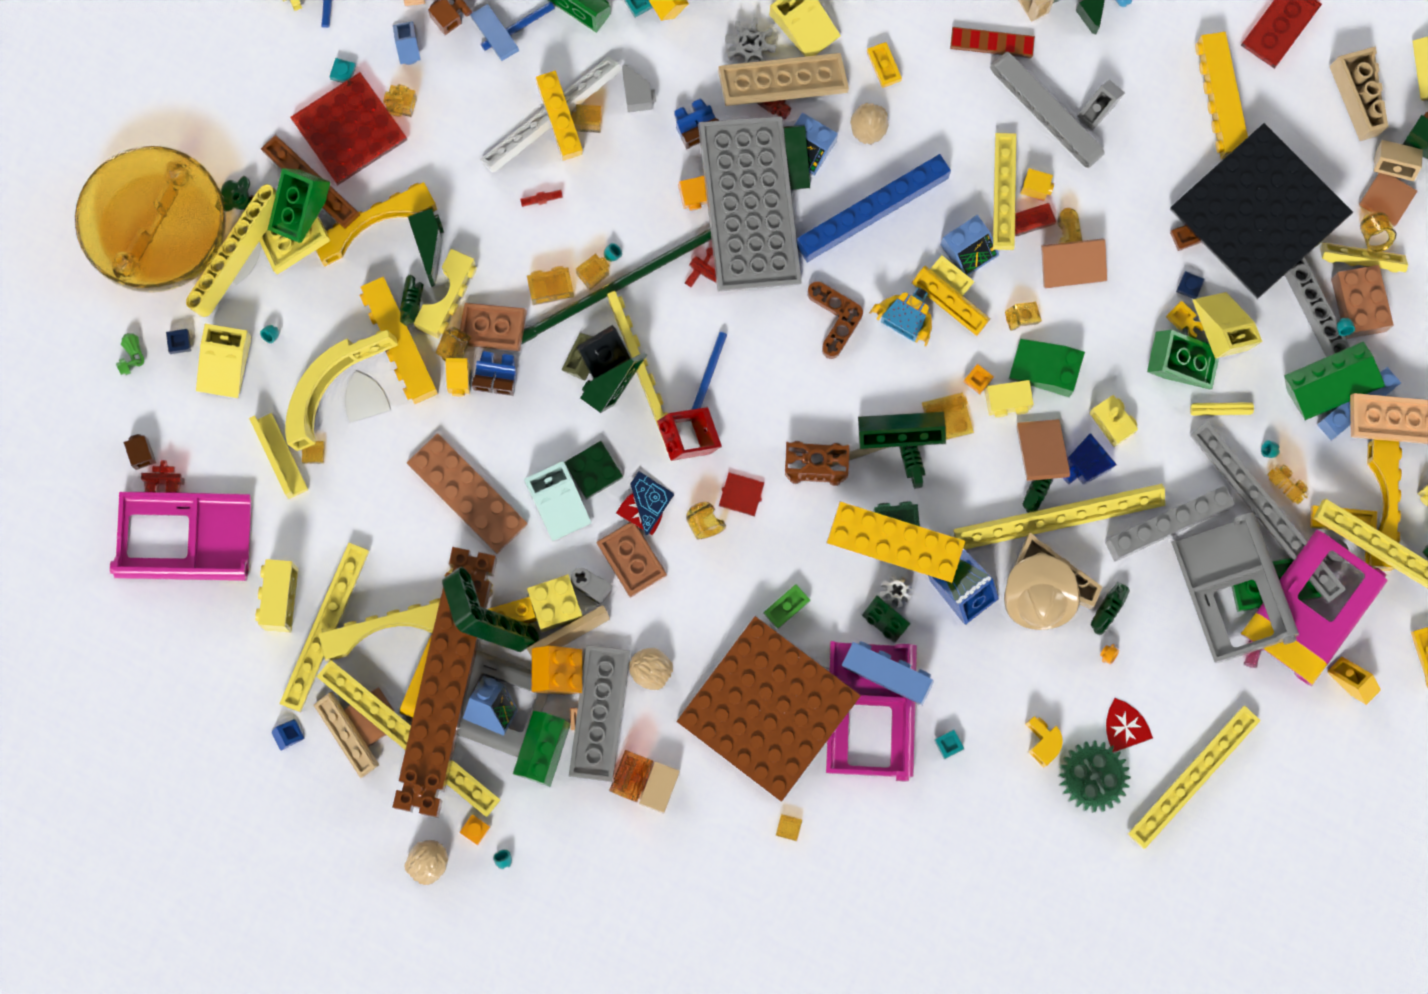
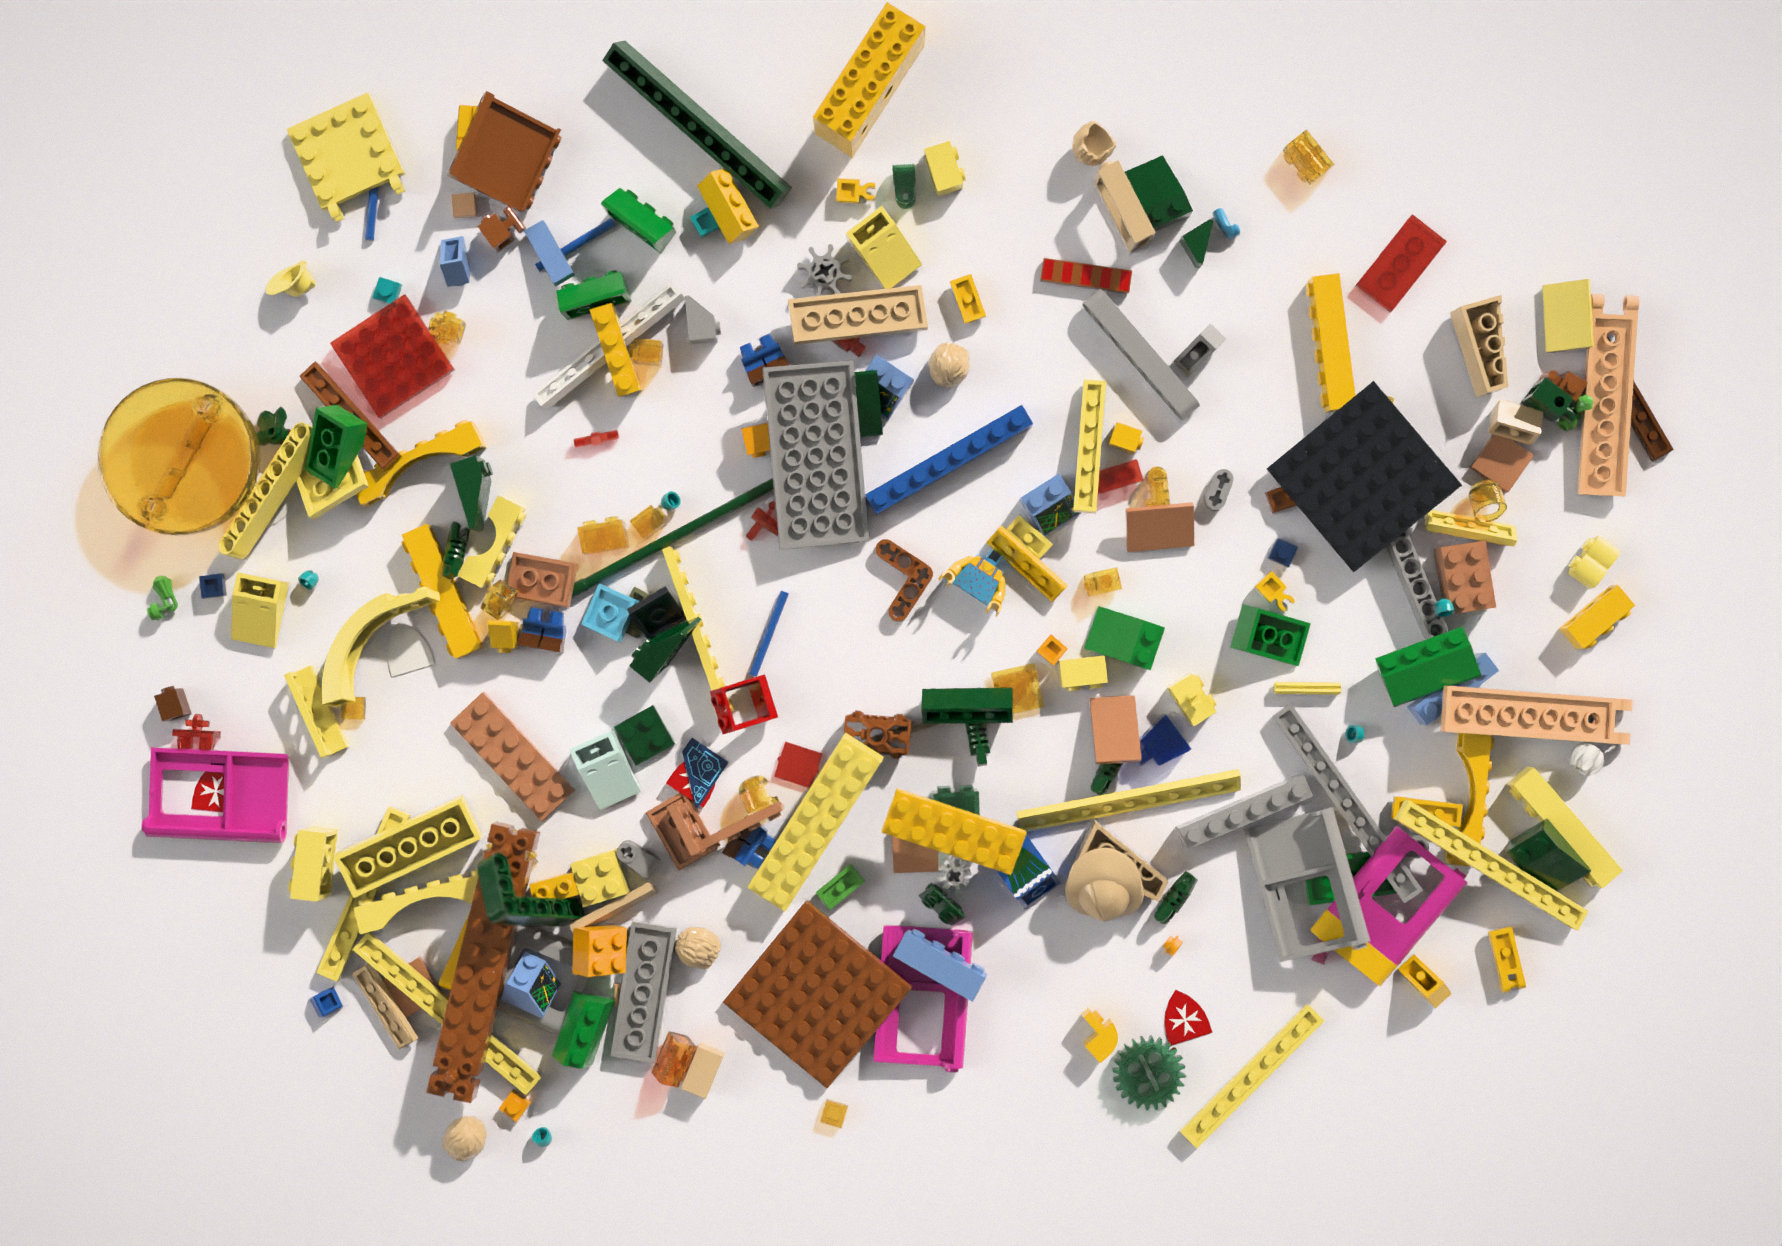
camera: 10 degrees right, 10 degrees up
(174, 536) = (209, 792): none -> red sticker
(256, 63) = (292, 281): none -> light yellow piece
(370, 575) = (407, 846): none -> light yellow brick
(522, 72) = (592, 293): none -> green slope
(557, 355) = (609, 612): none -> medium azure plate
(679, 552) = (691, 832): none -> nougat bracket
(695, 565) = (744, 851): none -> blue hips
(761, 541) = (815, 822): none -> light yellow brick
(856, 572) = (913, 857): none -> nougat tile
(949, 744) = (1001, 1034): teal plate -> none
(1131, 231) = (1223, 491): none -> light grey beam
(1226, 325) = (1317, 599): light yellow slope -> none
(1284, 472) = (1379, 777): clear yellow hinge -> none

